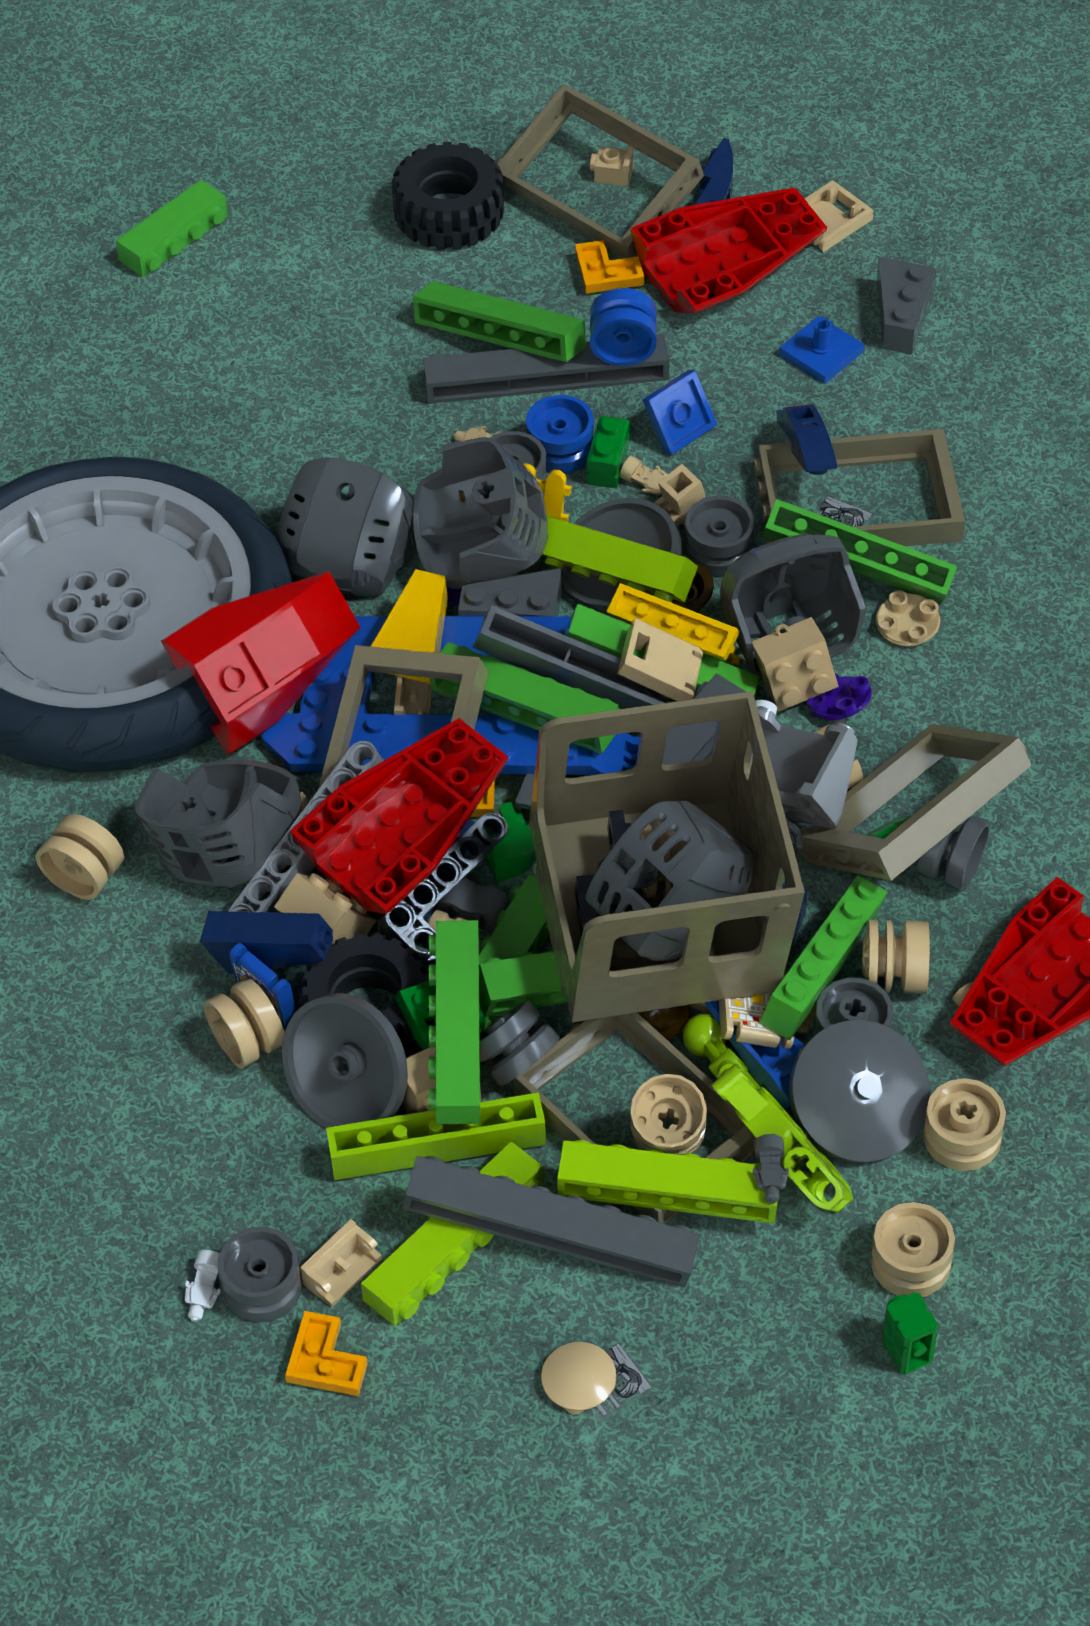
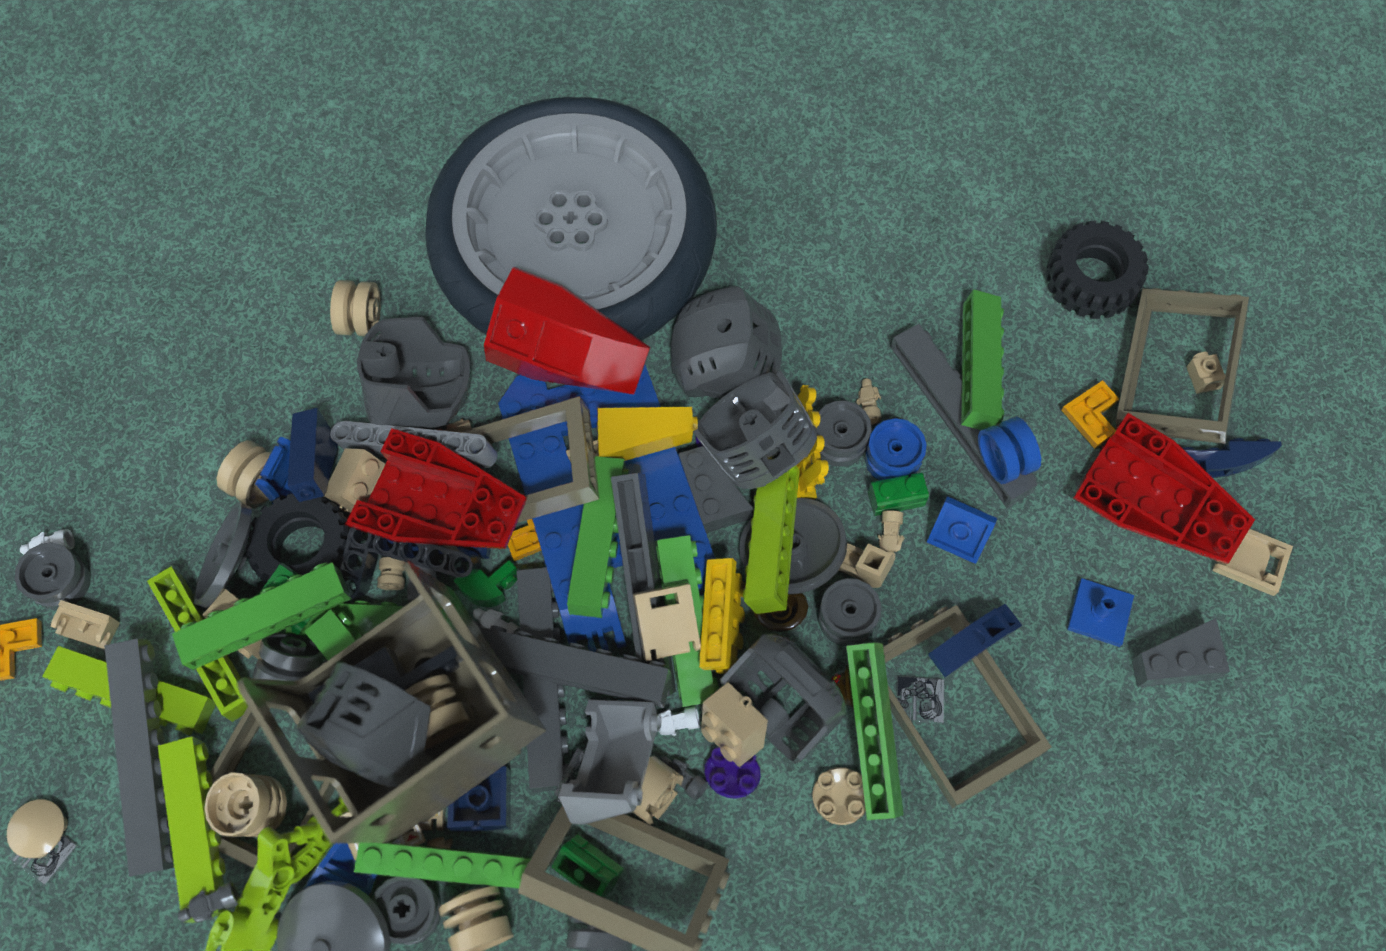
camera: 65 degrees right, 15 degrees up
(171, 228) = (962, 107): bright green brick -> none

